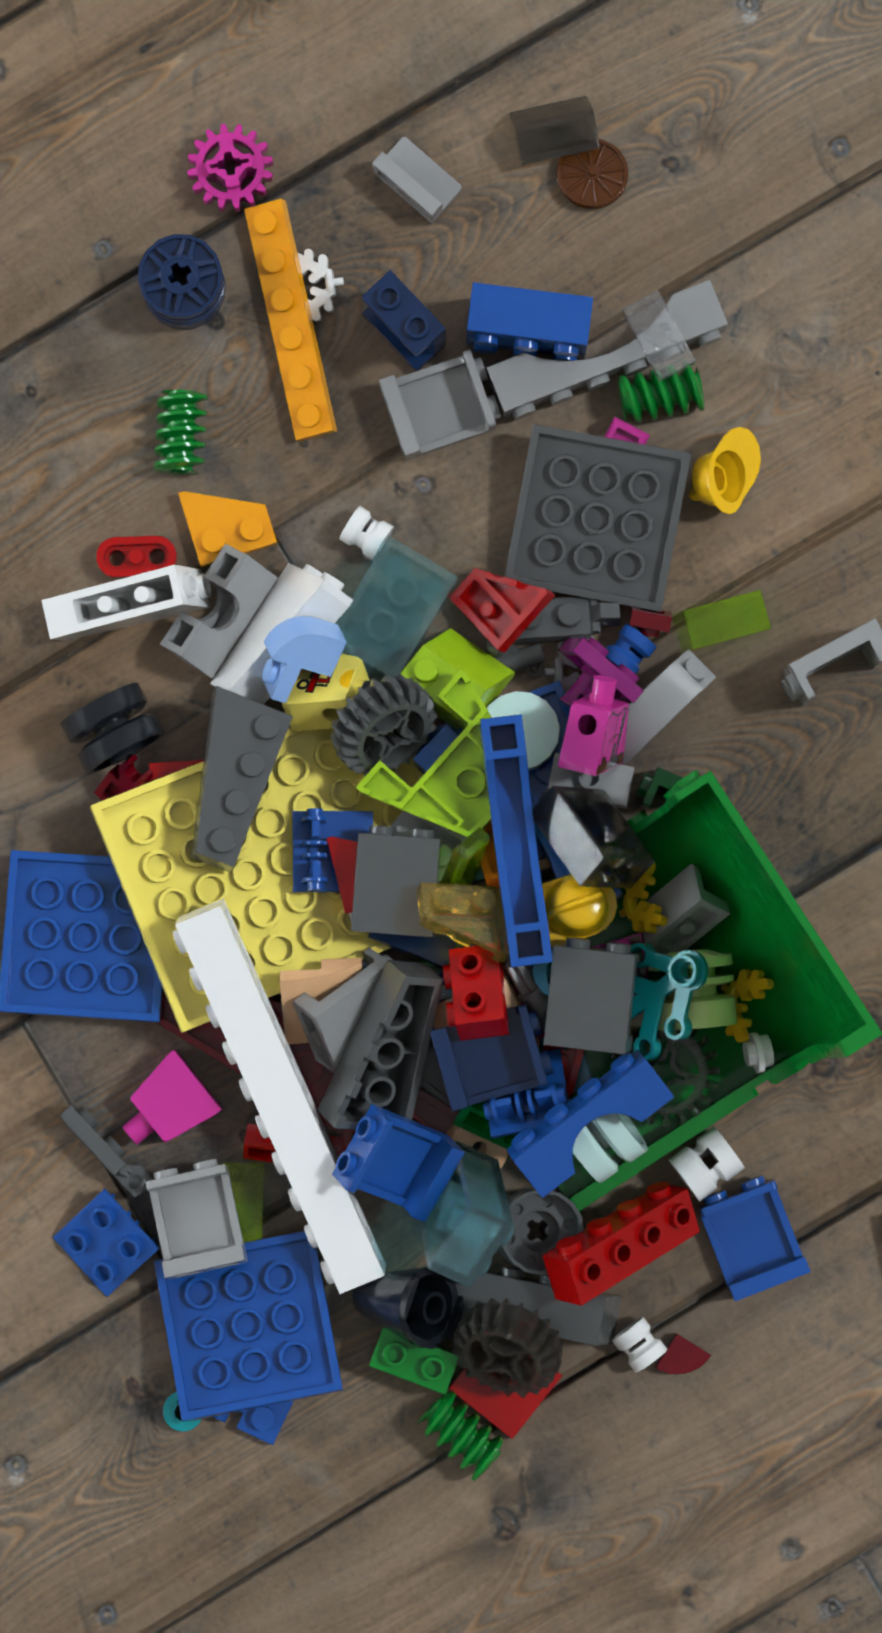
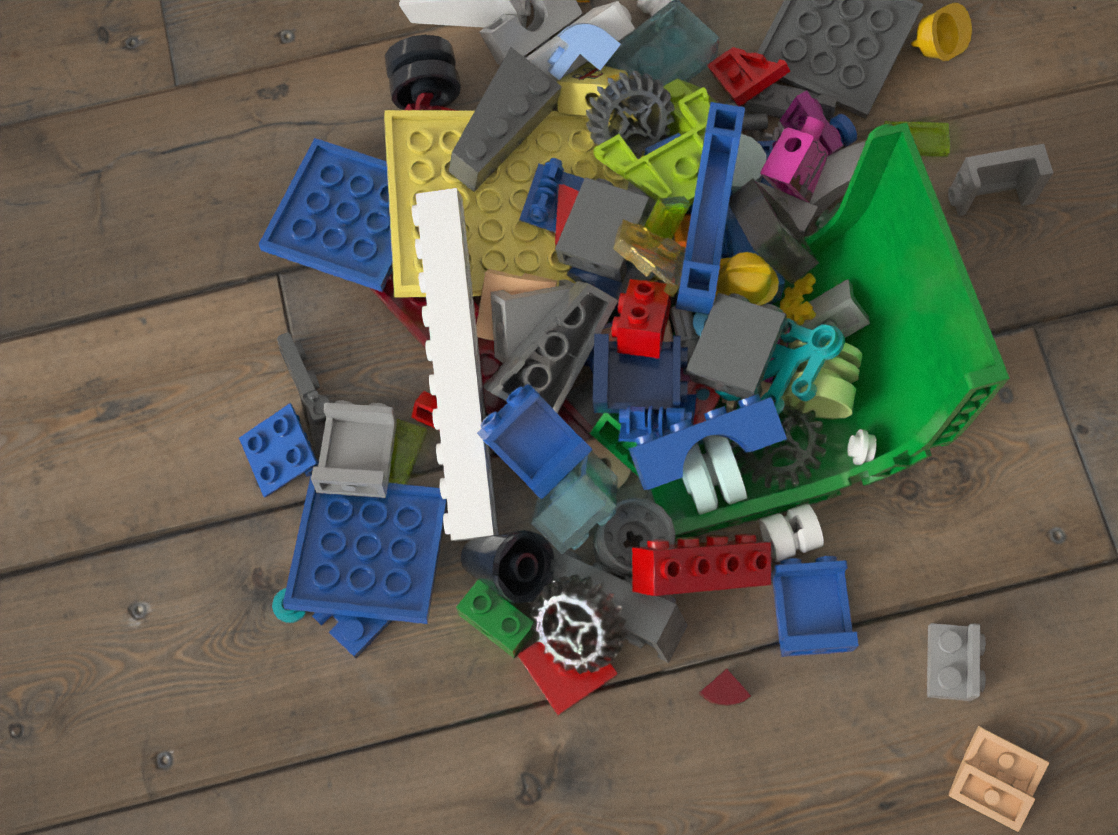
camera: 20 degrees right, 15 degrees down
(170, 1101) = (369, 358): dark pink torso -> none
(462, 1434) = (516, 695): green piece -> none
(643, 1353) = (694, 674): white wheel -> none
(650, 621) = (862, 118): dark red plate -> none
(747, 986) = (866, 389): yellow animal -> none

